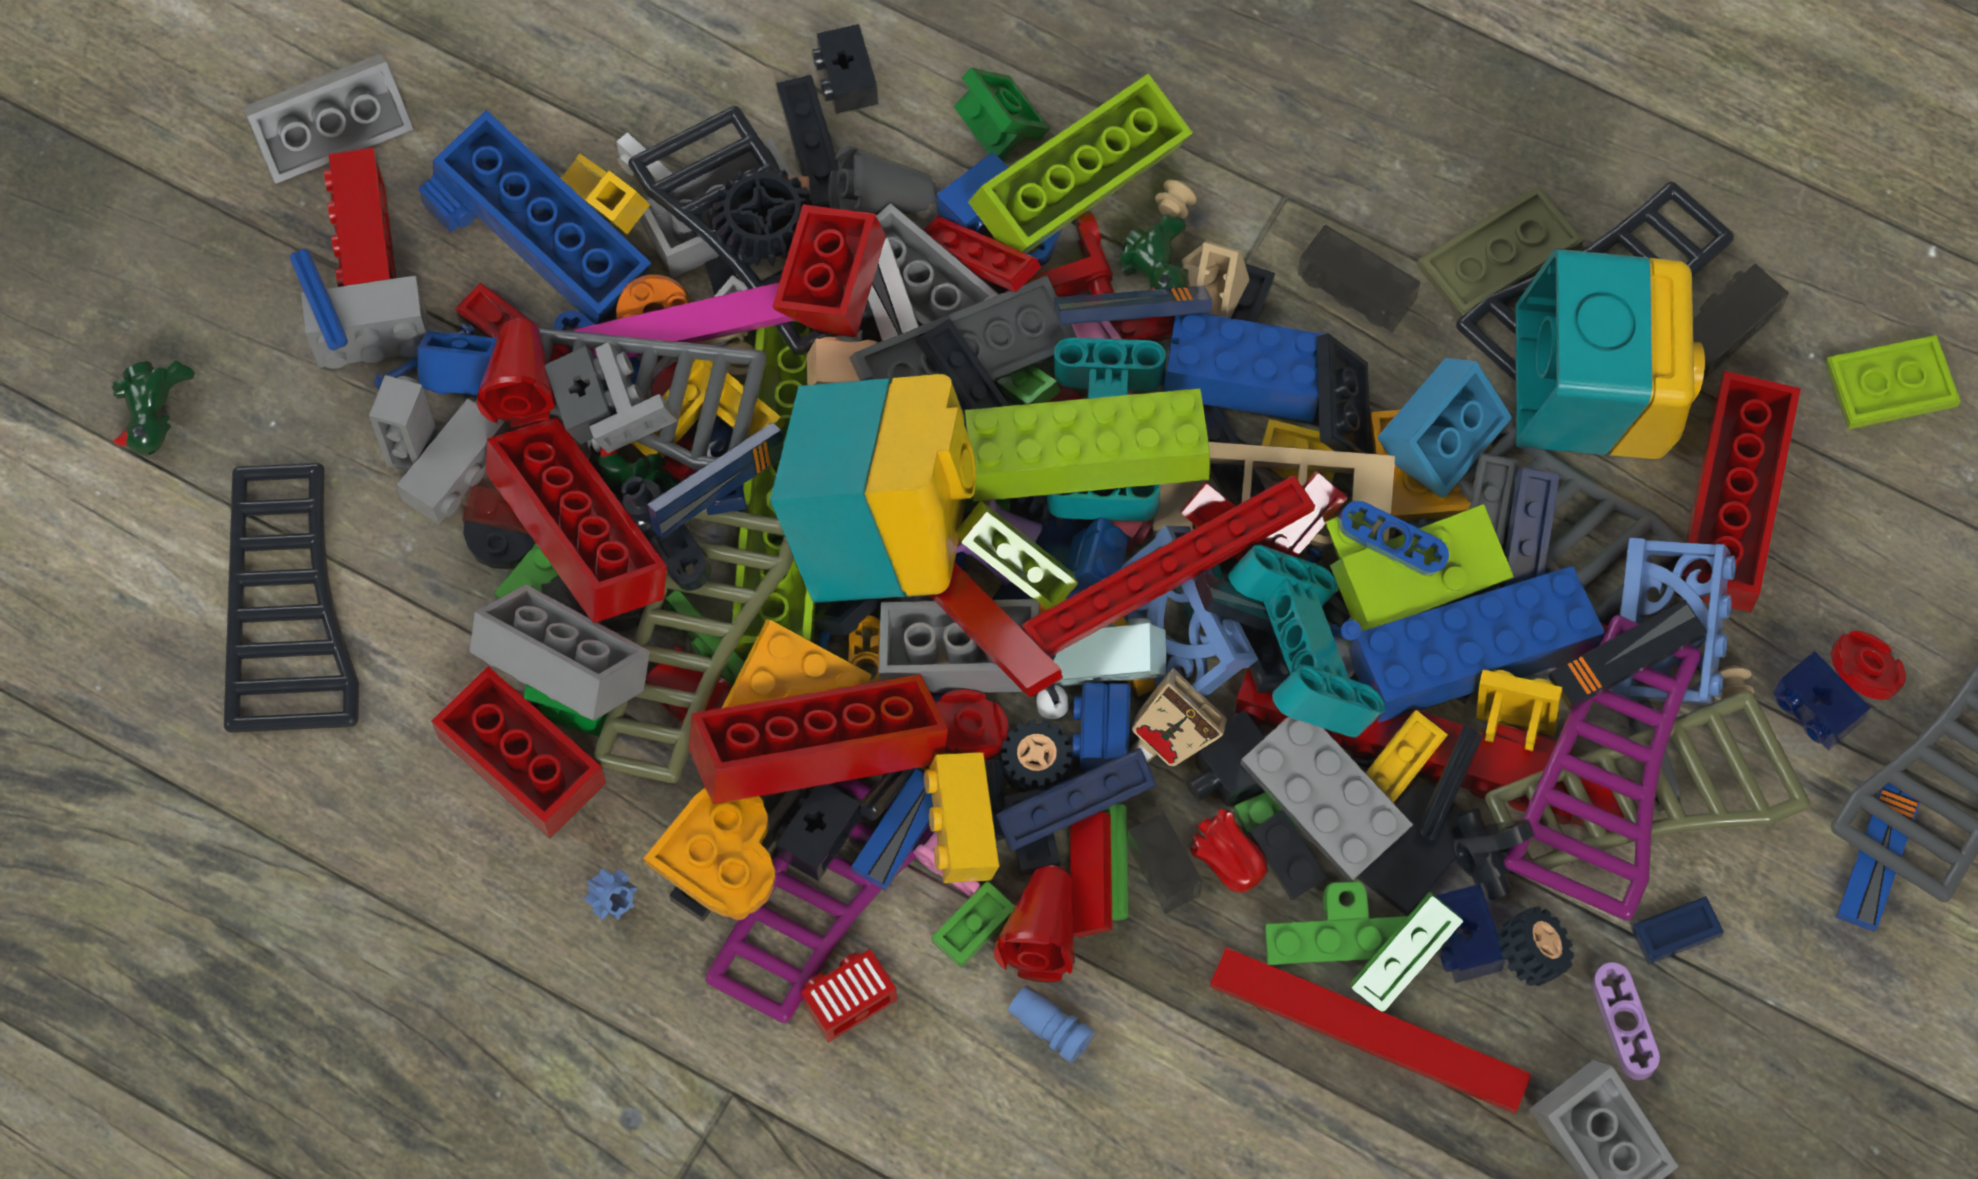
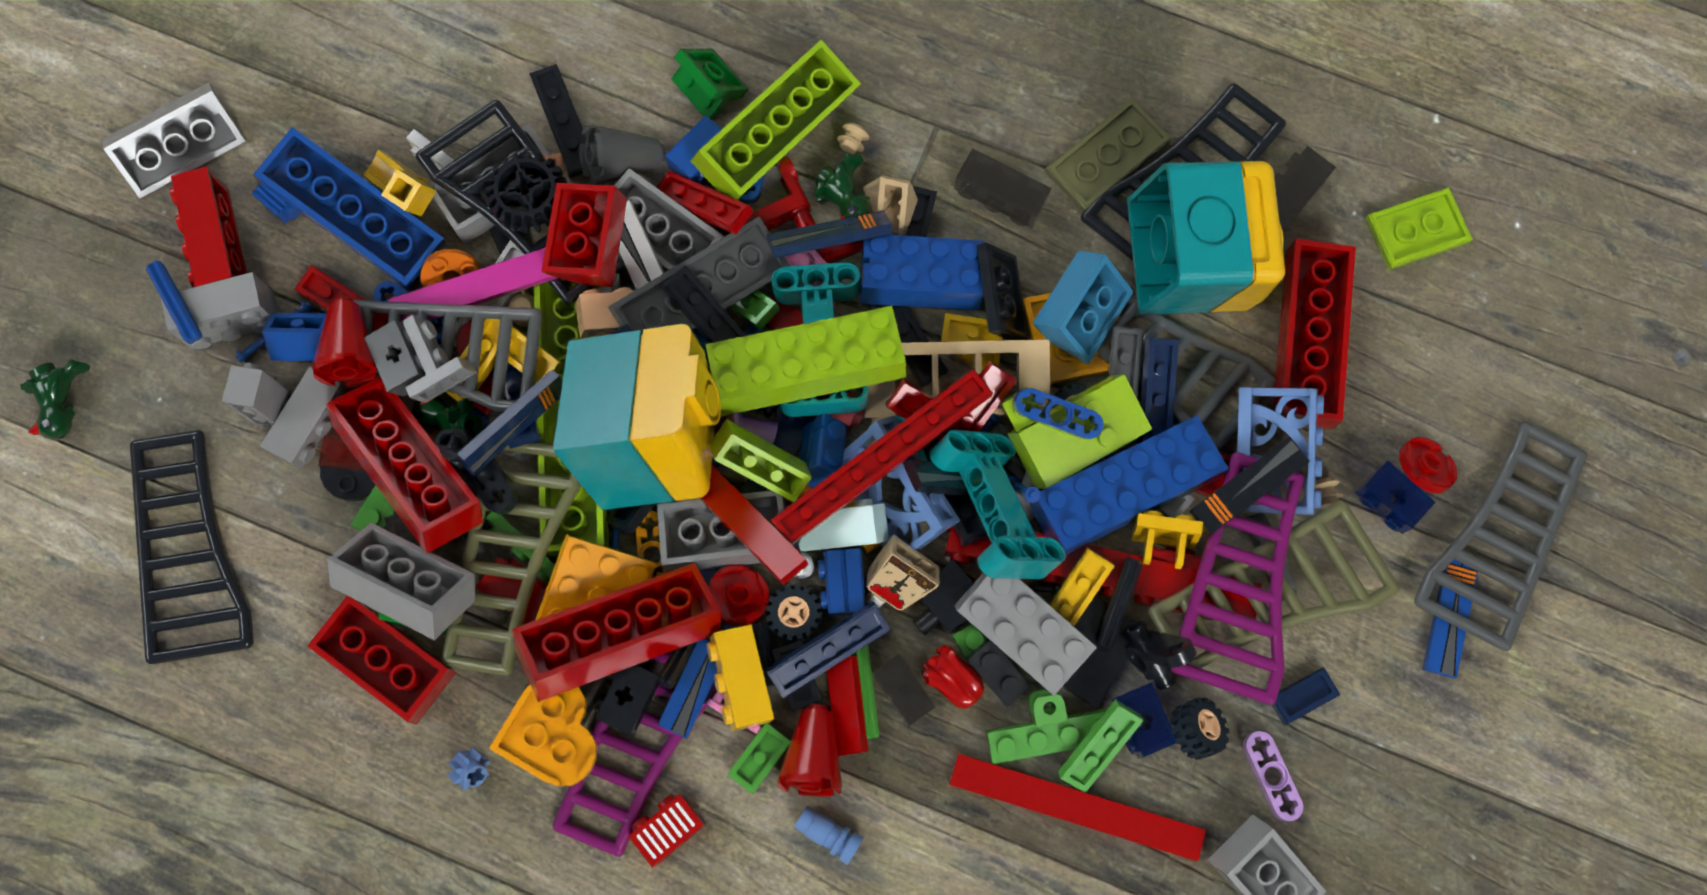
camera: 10 degrees left, 10 degrees up
(846, 69) = (580, 41): black brick -> none

